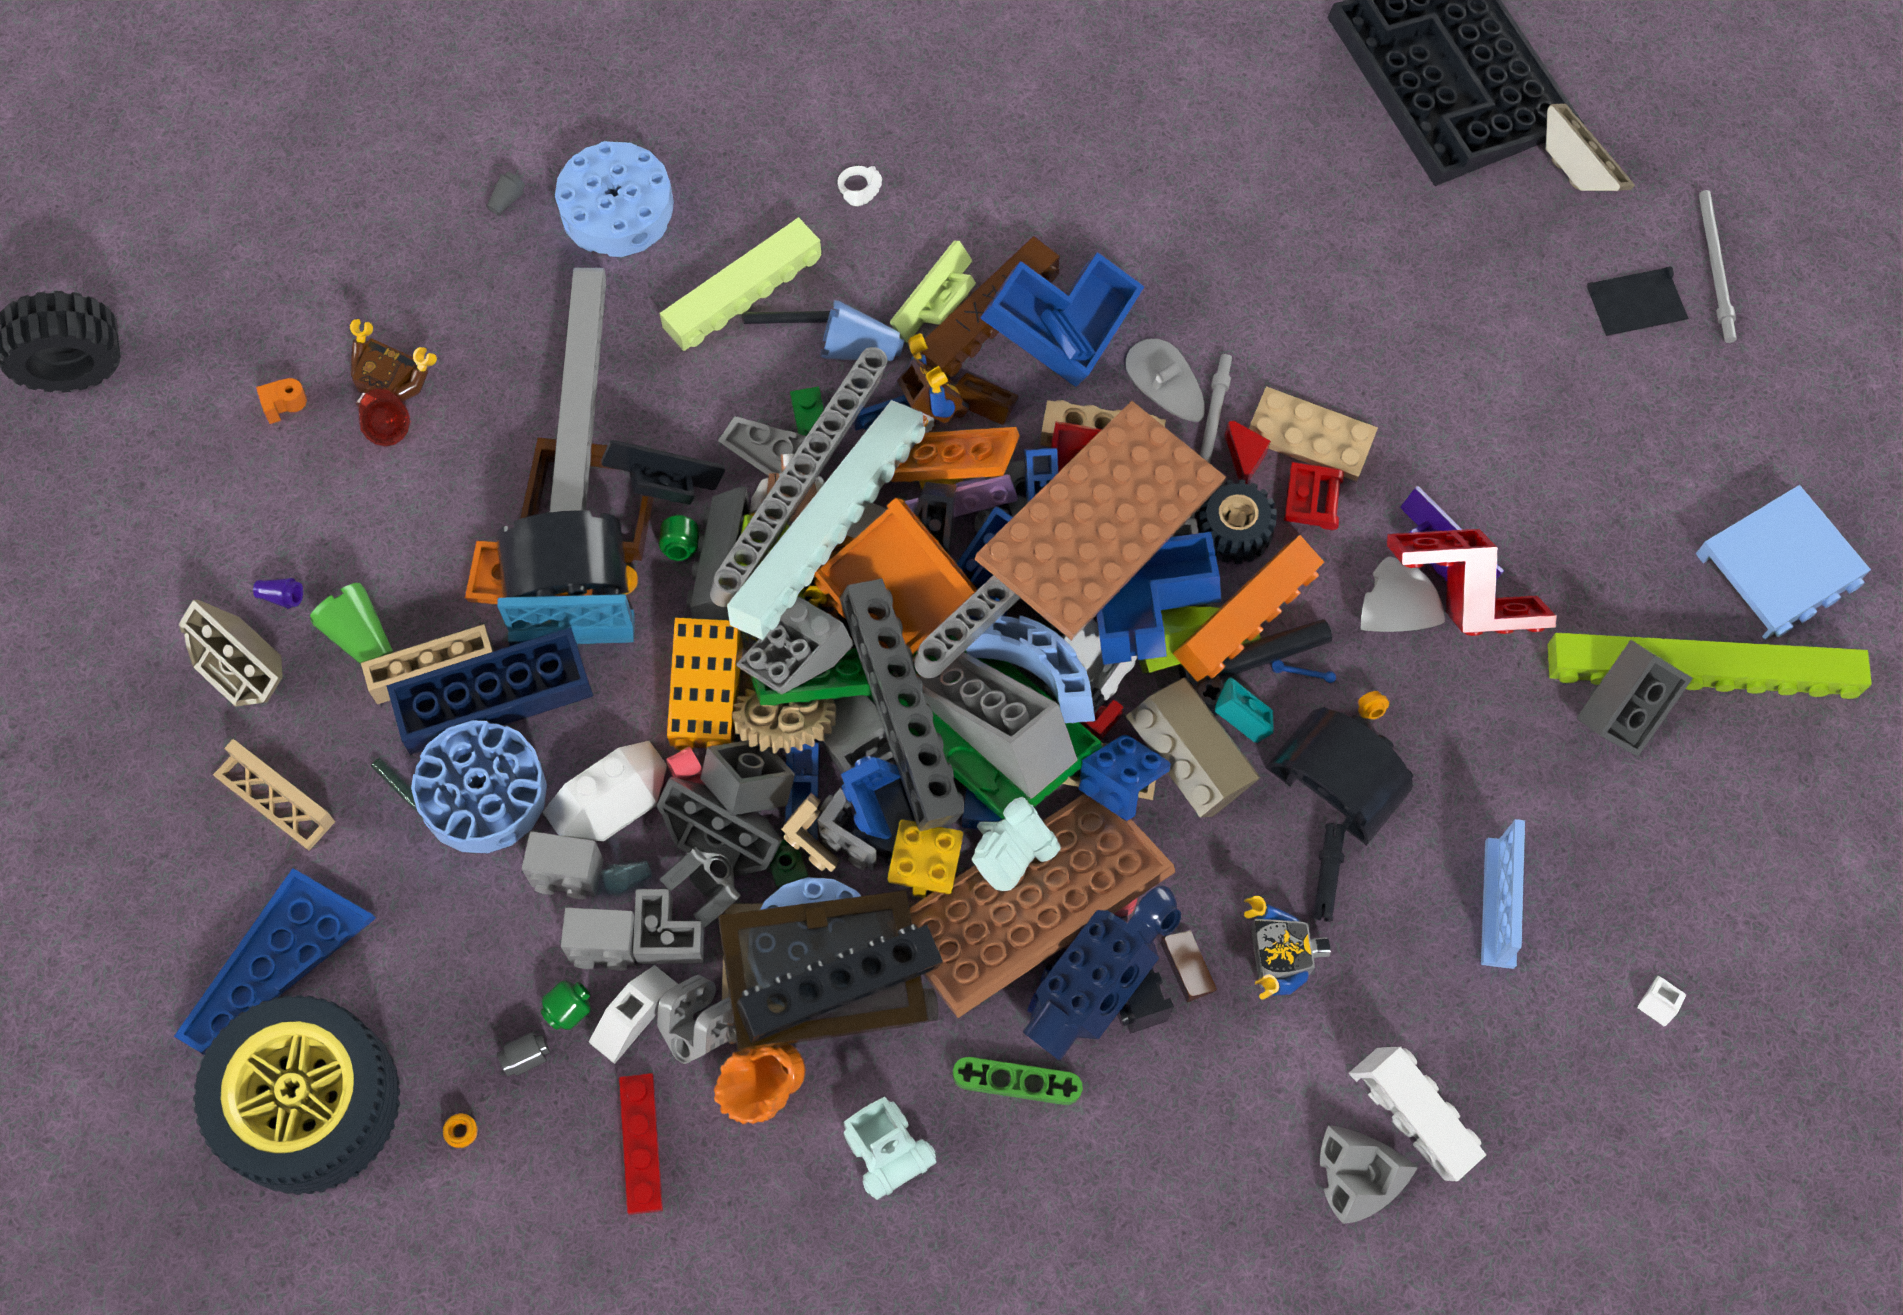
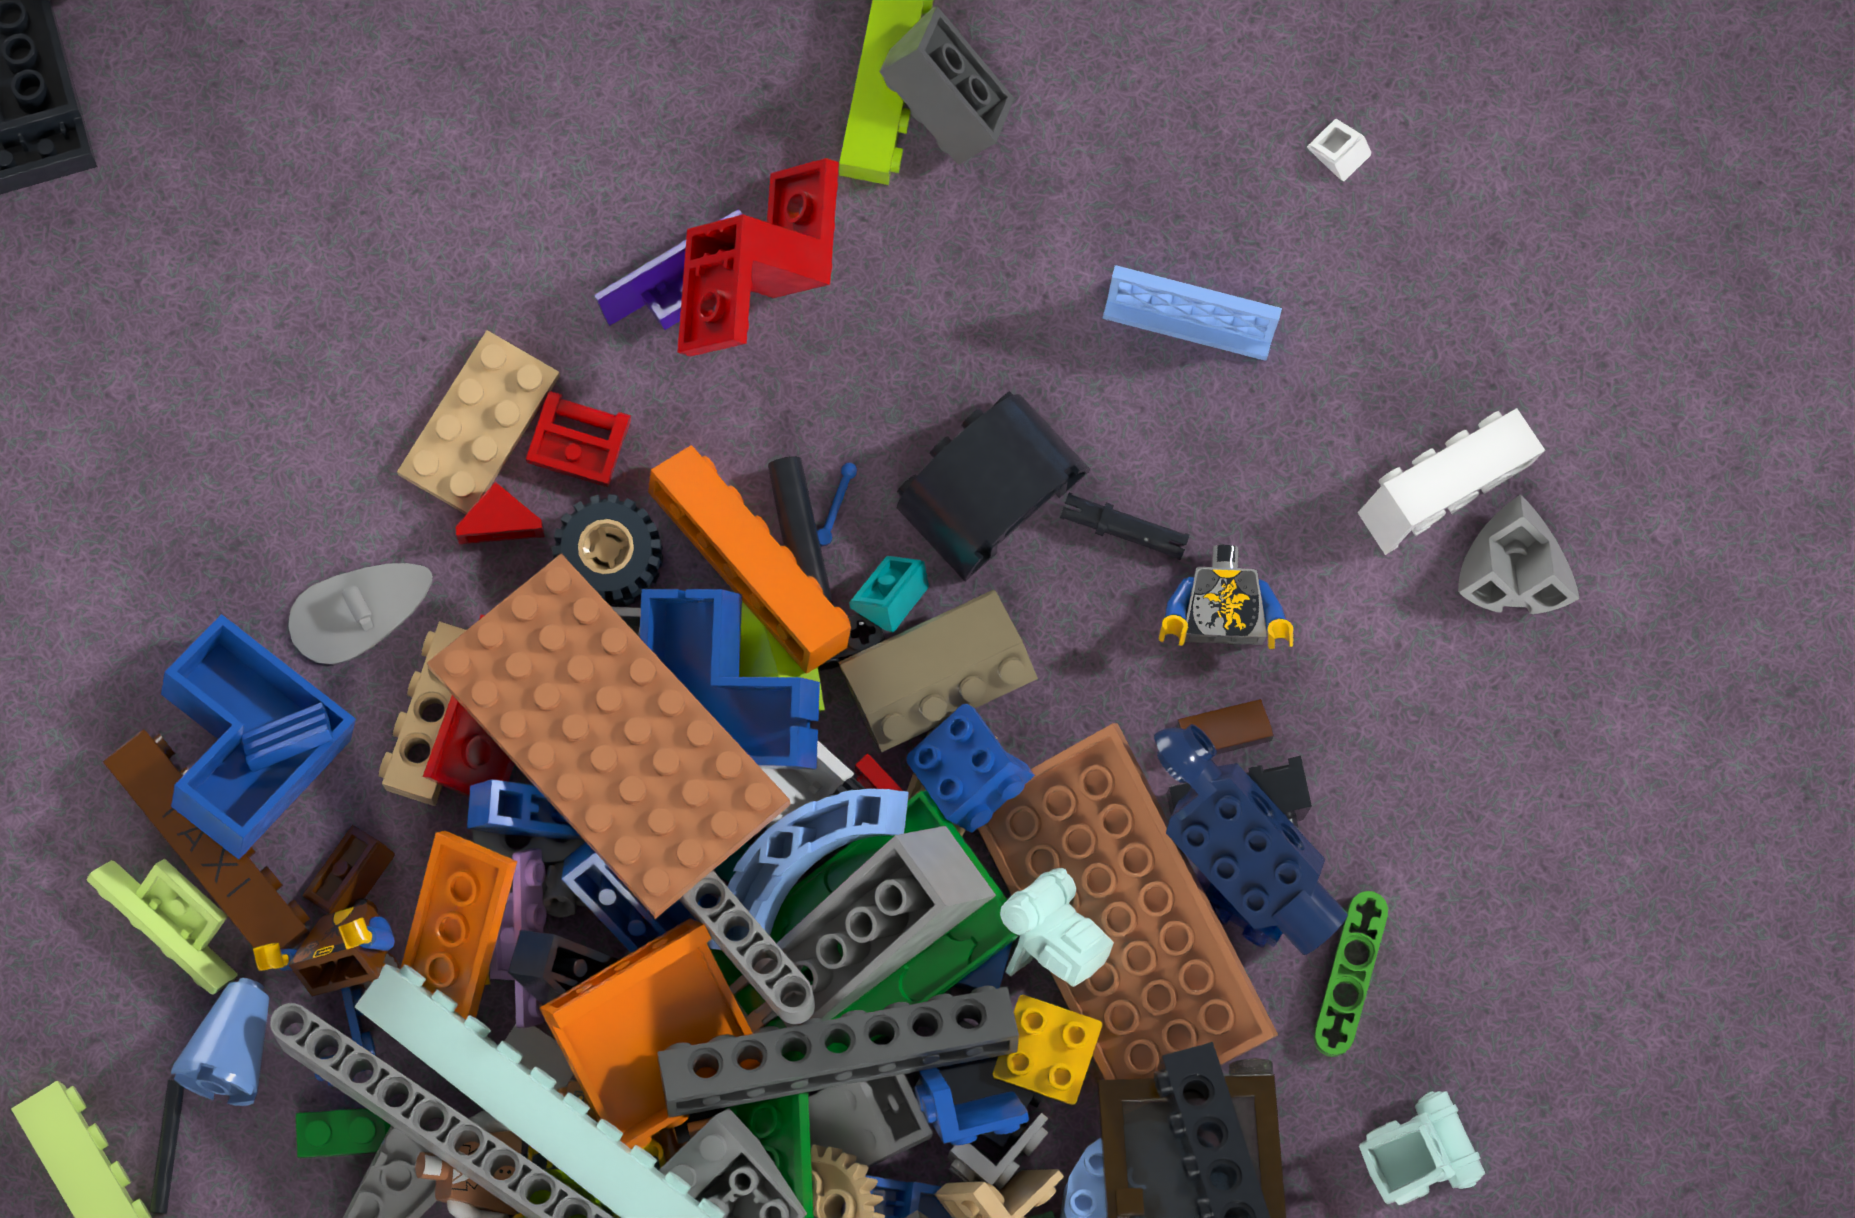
camera: 85 degrees left, 10 degrees up
(1220, 385) = (380, 534): light grey bar -> none
(1373, 705) = (902, 422): light orange plate -> none
(1401, 600) = (773, 361): light grey brick -> none

